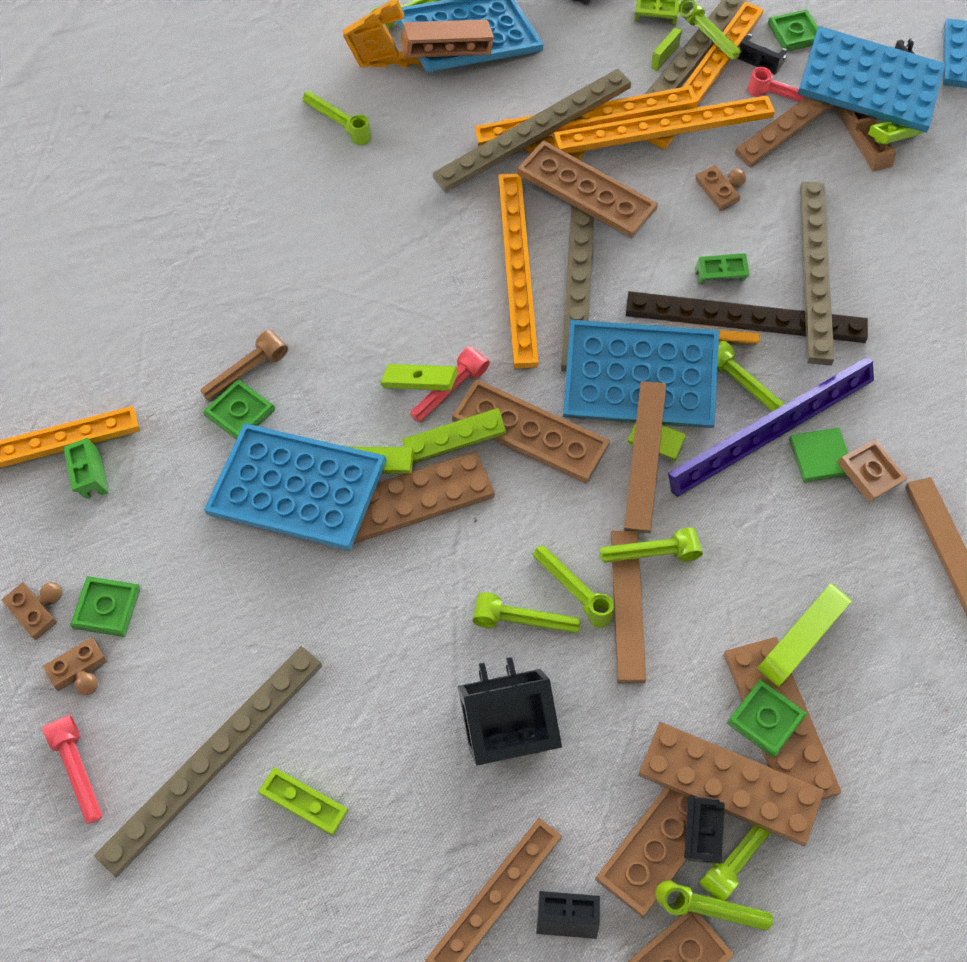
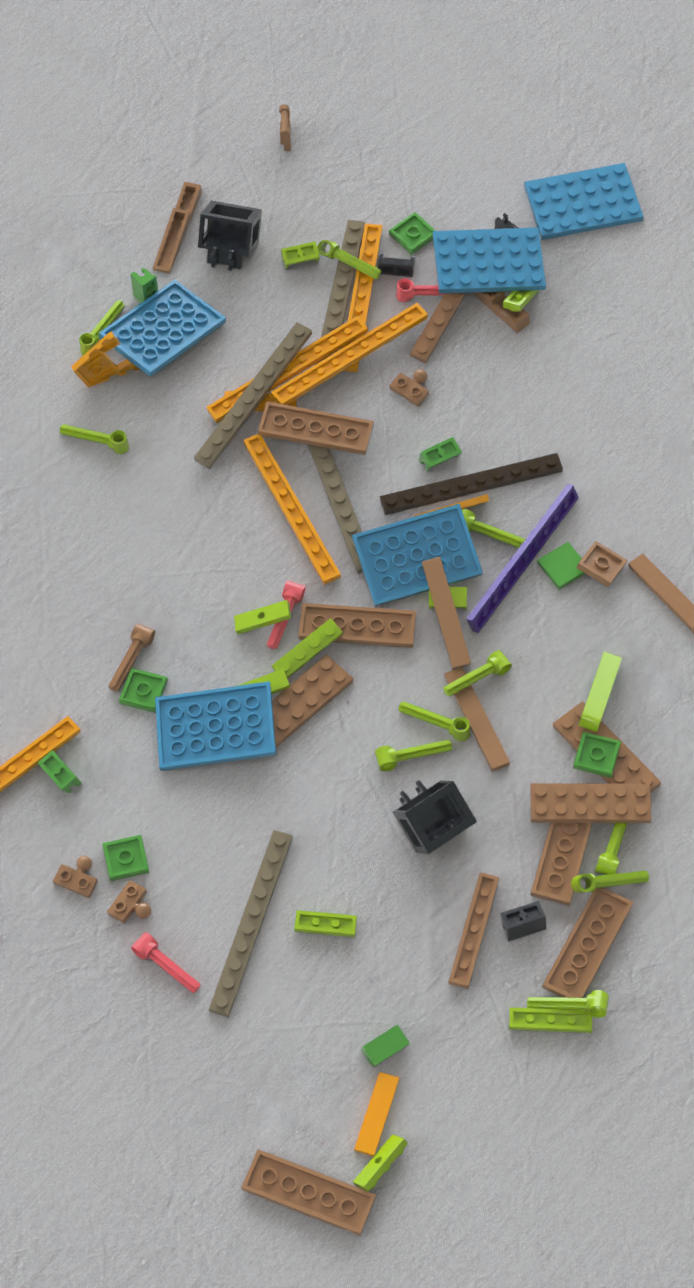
camera: 20 degrees left, 0 degrees up
(446, 38) = (155, 344): nougat brick -> none
(666, 49) = (321, 286): lime tile -> none
(704, 830) = (586, 836): black hinge -> none
(816, 274) = (507, 431): dark tan plate -> none

